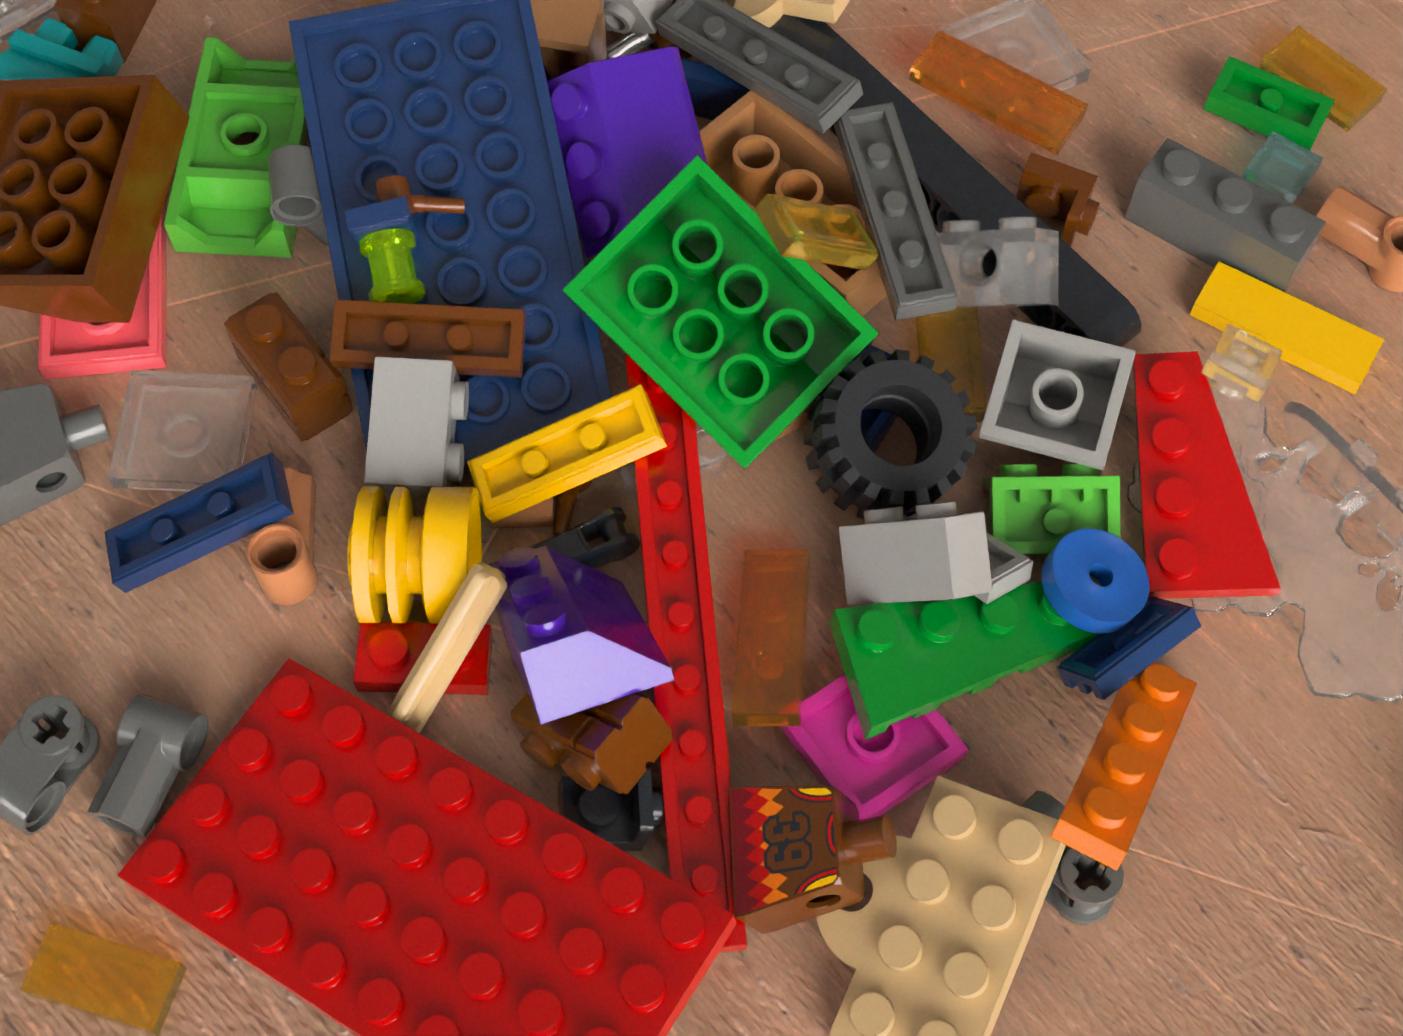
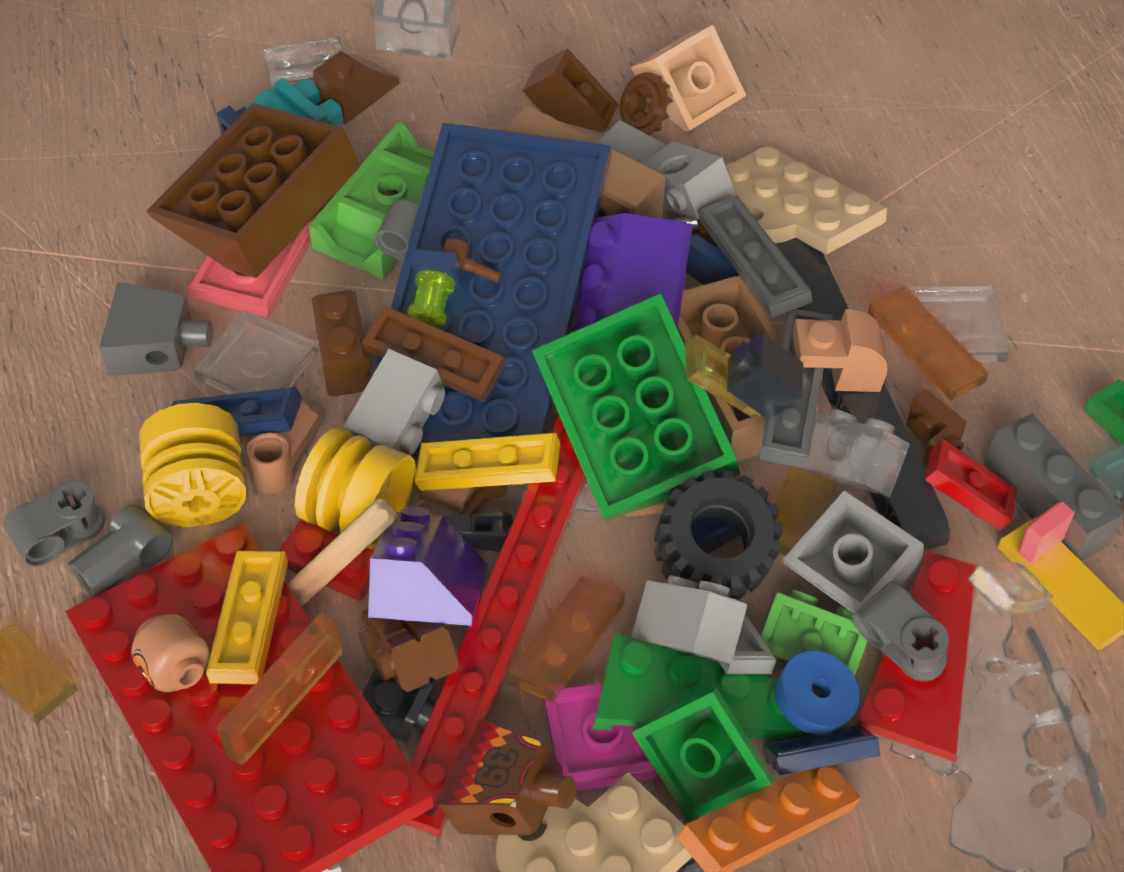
camera: 25 degrees right, 10 degrees down
(187, 612) = (191, 465): none -> yellow wheel
(305, 878) = (170, 652): none -> nougat head
(375, 786) = (247, 617): none -> yellow tile
(480, 867) = (280, 689): none -> clear orange tile
(869, 214) = (765, 376): none -> black brick
(930, 140) = (847, 346): none -> nougat brick
(1012, 712) = (702, 753): none -> green slope
(1134, 251) = (971, 484): none -> red plate
(1159, 466) = (898, 626): none -> dark grey piece
(1247, 277) = (1046, 532): none -> coral tile

